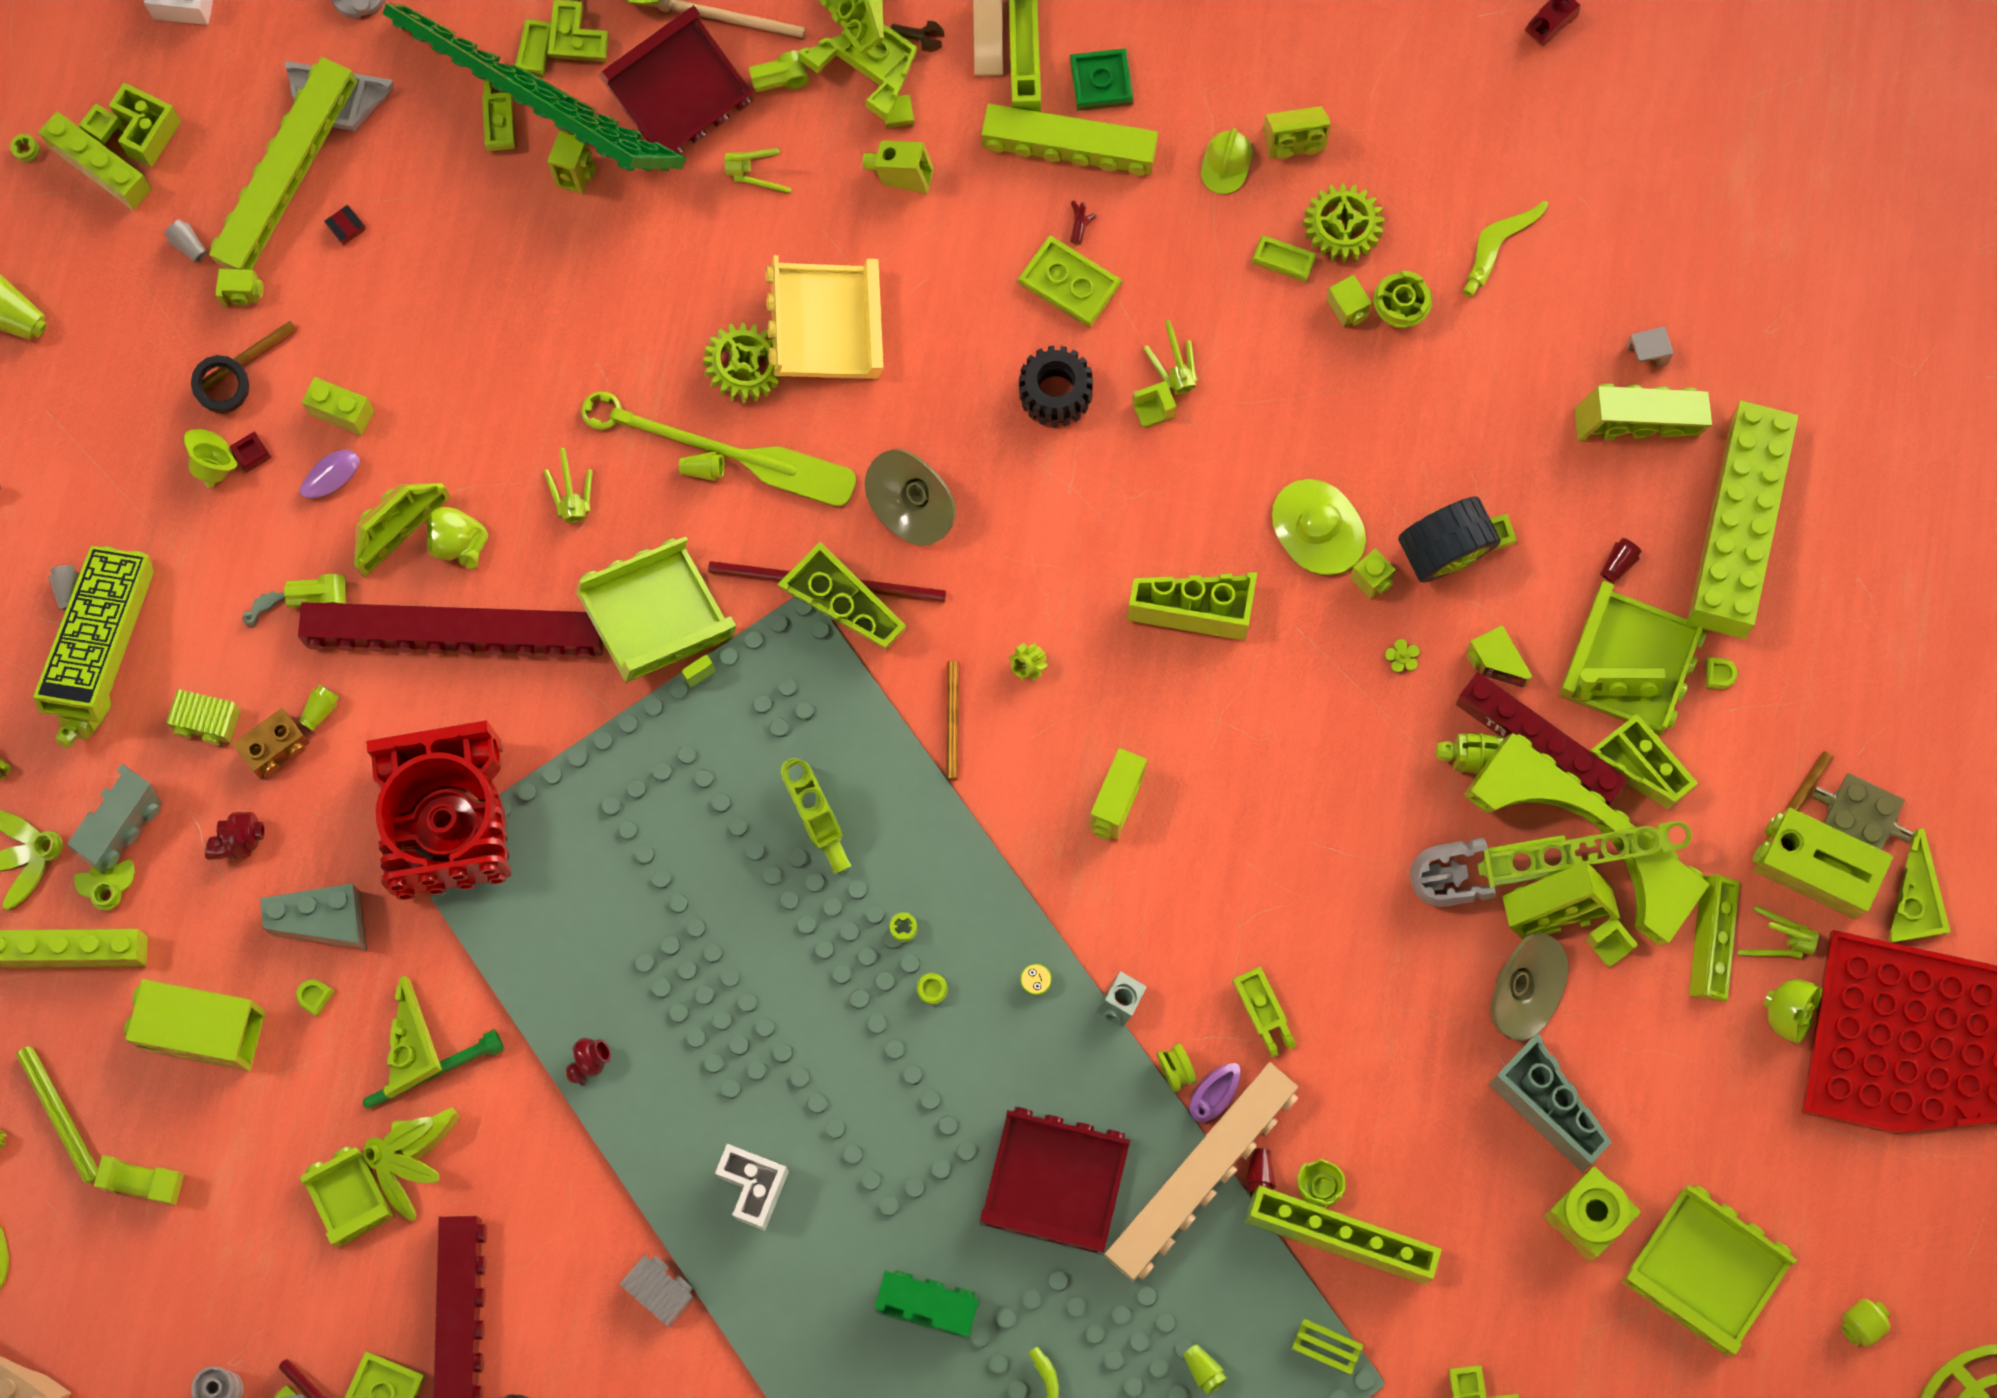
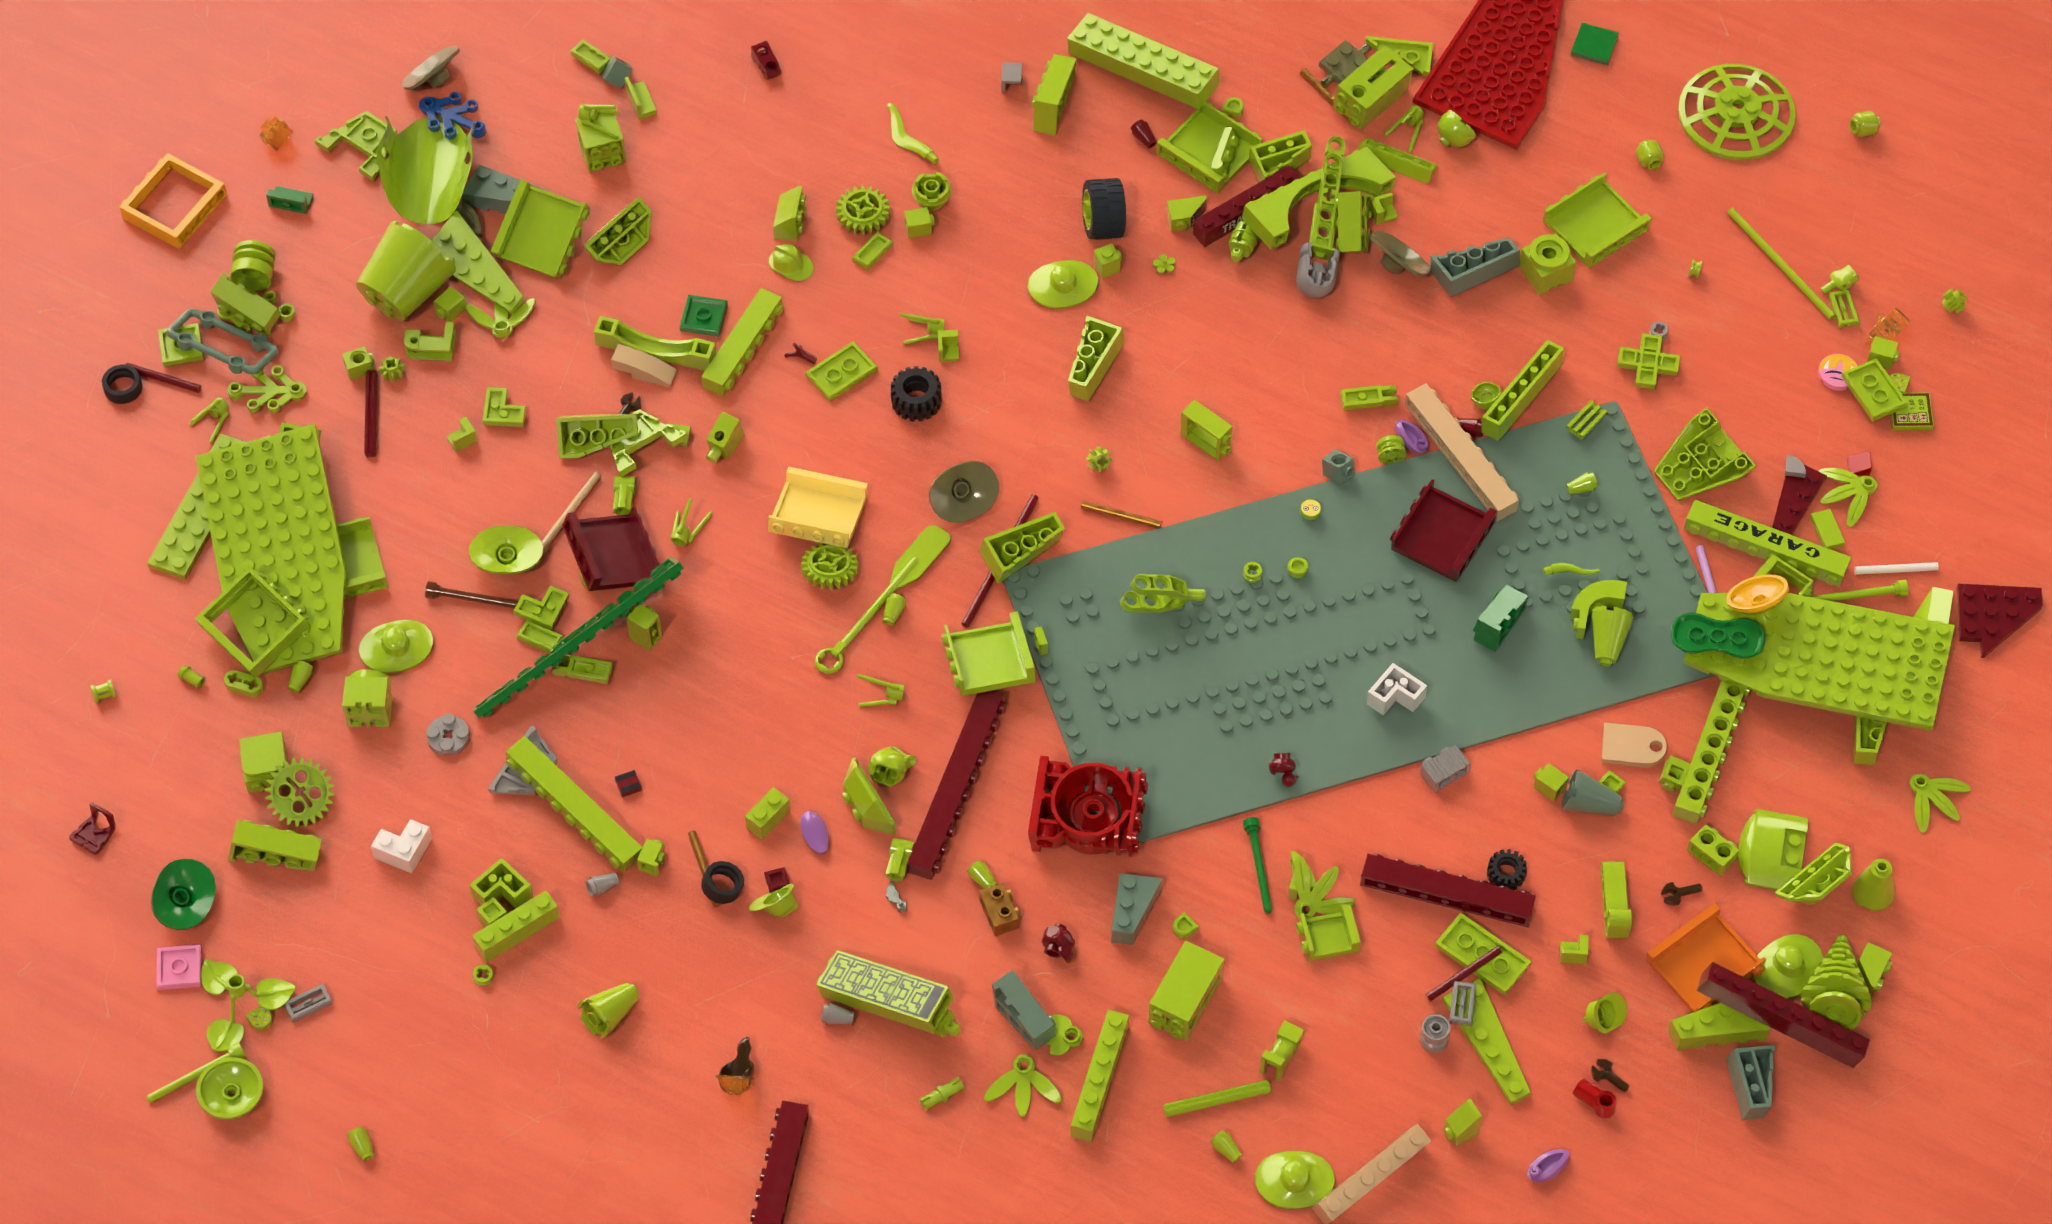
camera: 75 degrees left, 15 degrees down
(203, 716) = (964, 947): lime brick -> none
(412, 1050) = (1242, 870): lime wing -> none

